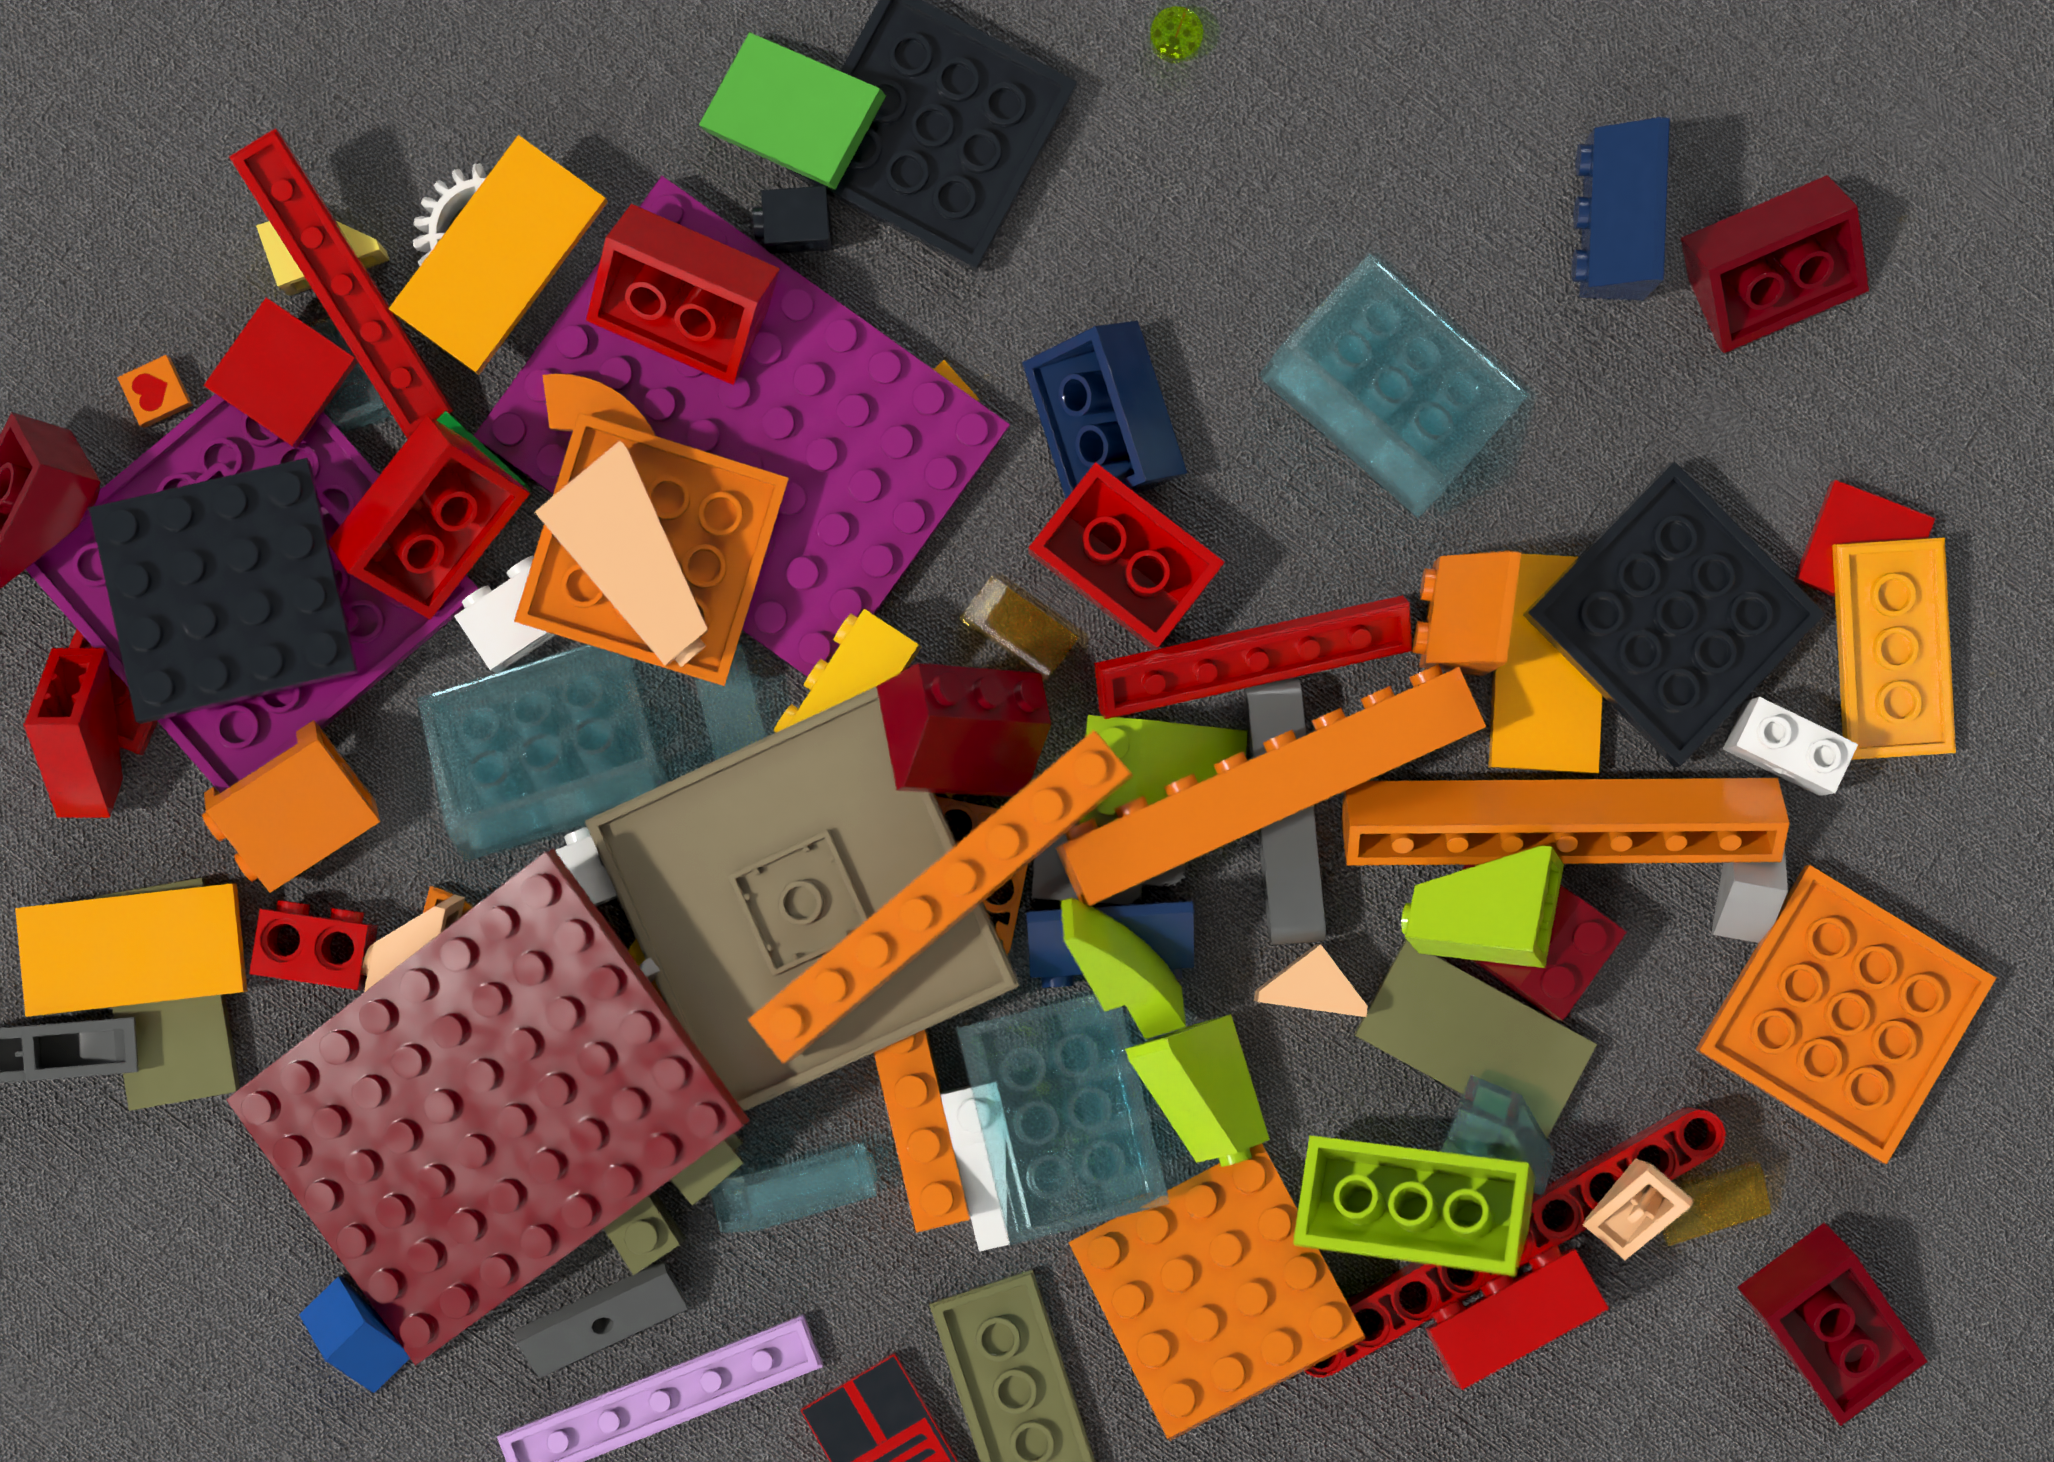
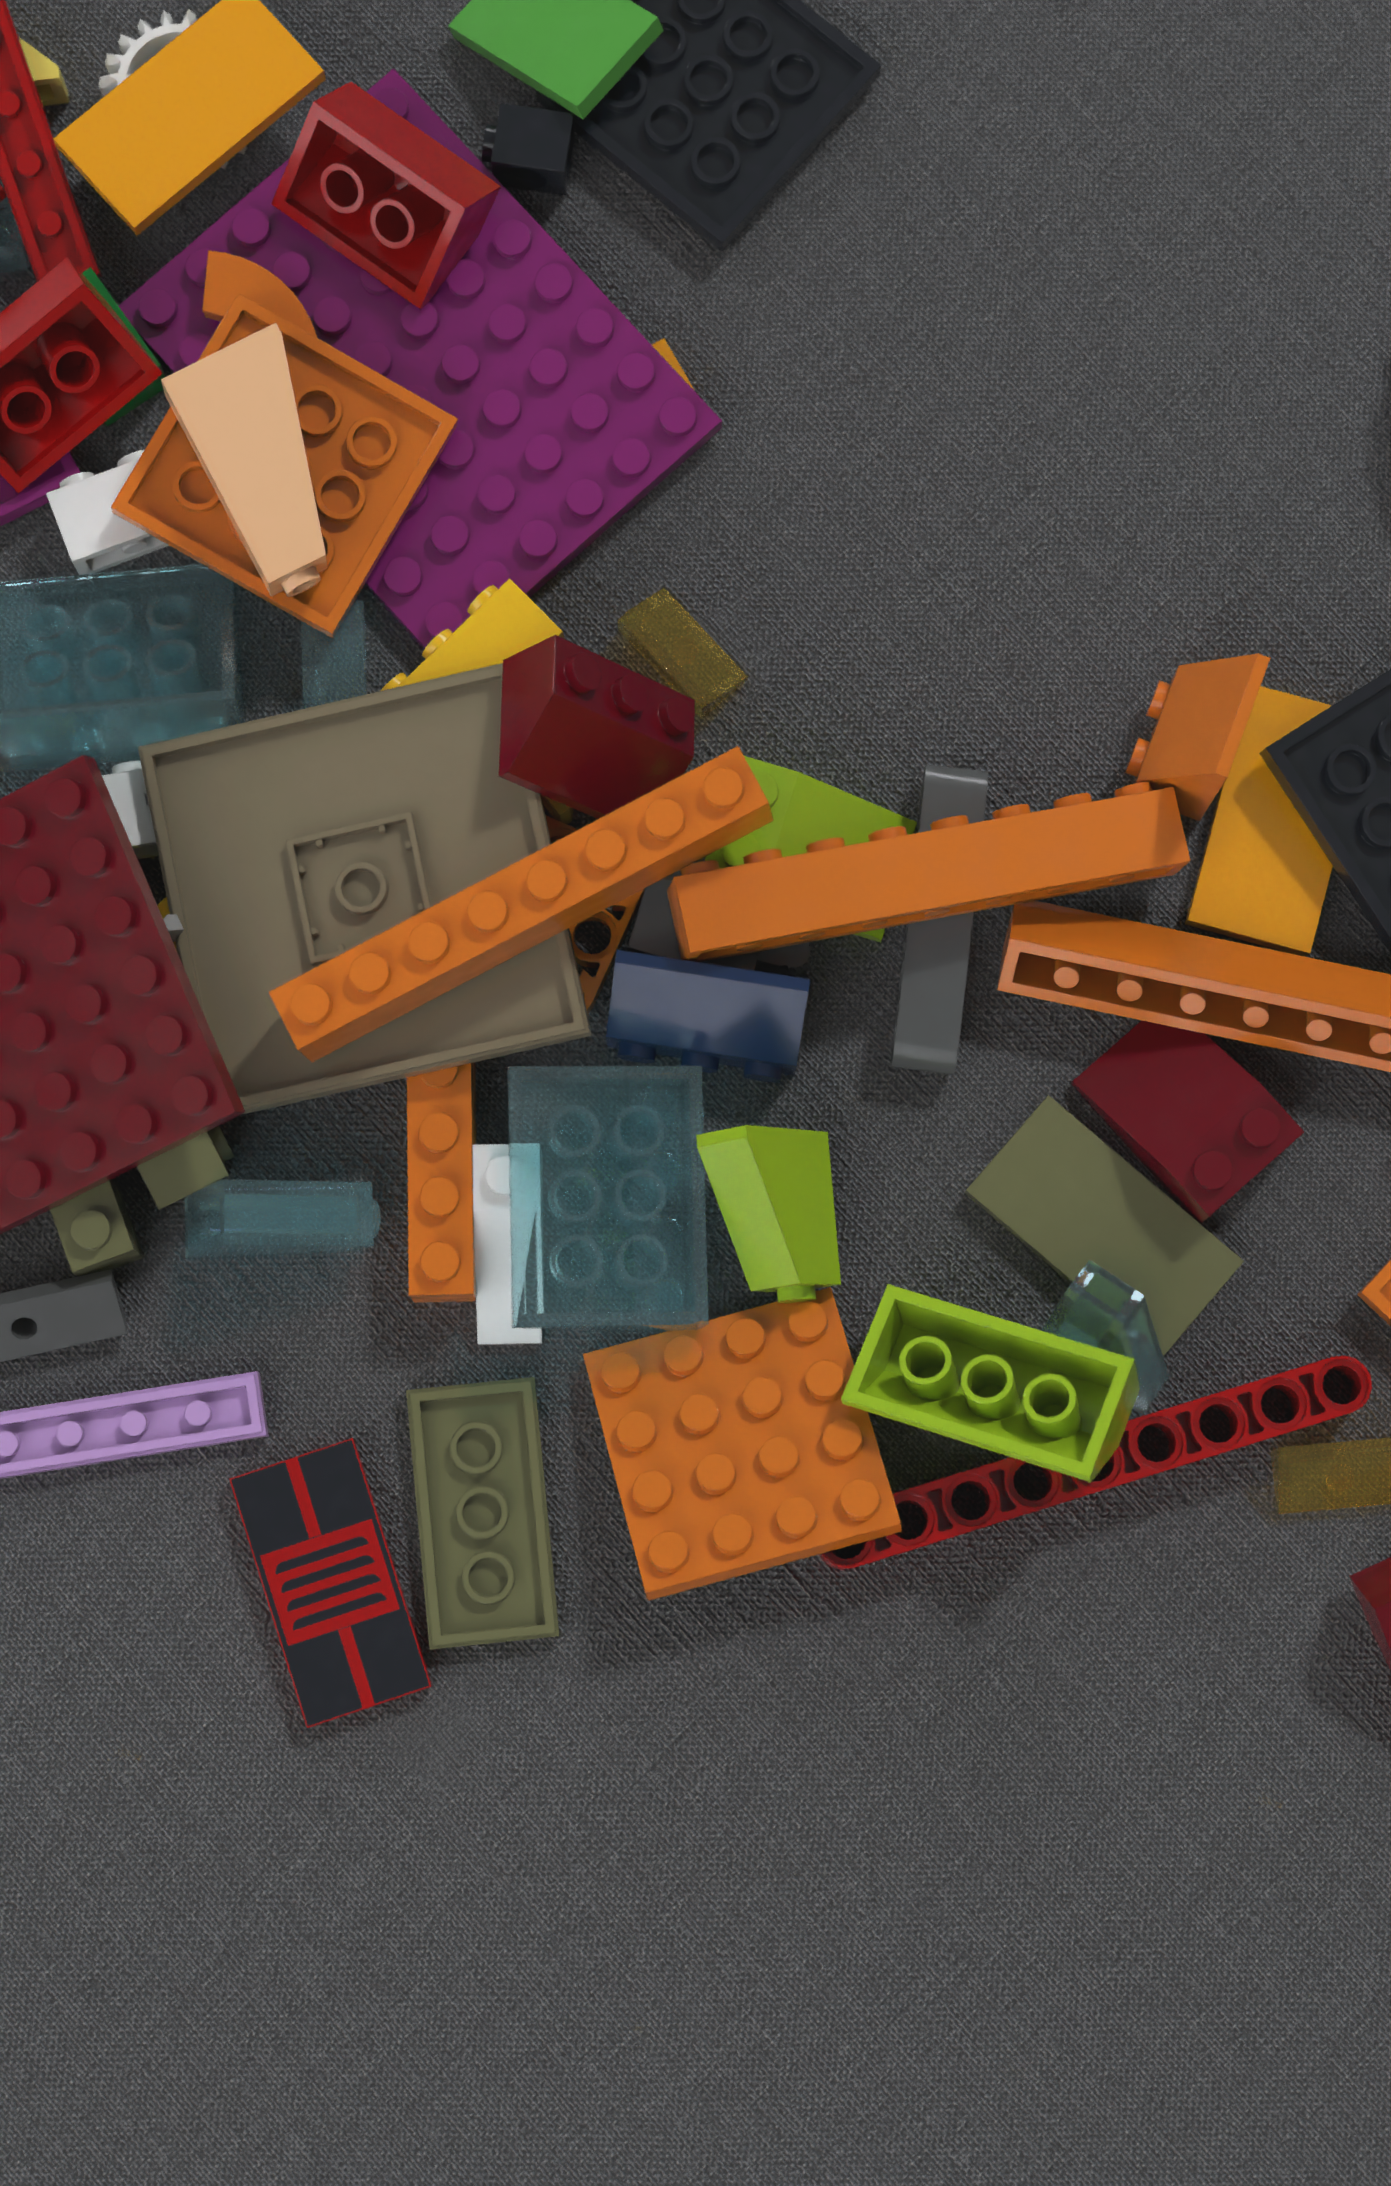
camera: 15 degrees right, 5 degrees down
(1105, 408) = (831, 435): dark blue slope -> none
(1123, 969) = (713, 1040): lime slope -> none
(1125, 557) = (819, 591): red slope -> none
(1176, 34) = (1004, 42): clear neon green tile -> none
(1253, 657) = (941, 732): red tile -> none
(1314, 984) = (930, 1122): light nougat slope -> none
(1393, 385) = (1164, 471): clear light blue slope -> none
(1489, 910) = (1150, 1072): lime slope -> none
(1514, 1316) = (1081, 1543): red slope -> none
(1636, 1209) = (1250, 1448): light nougat slope -> none

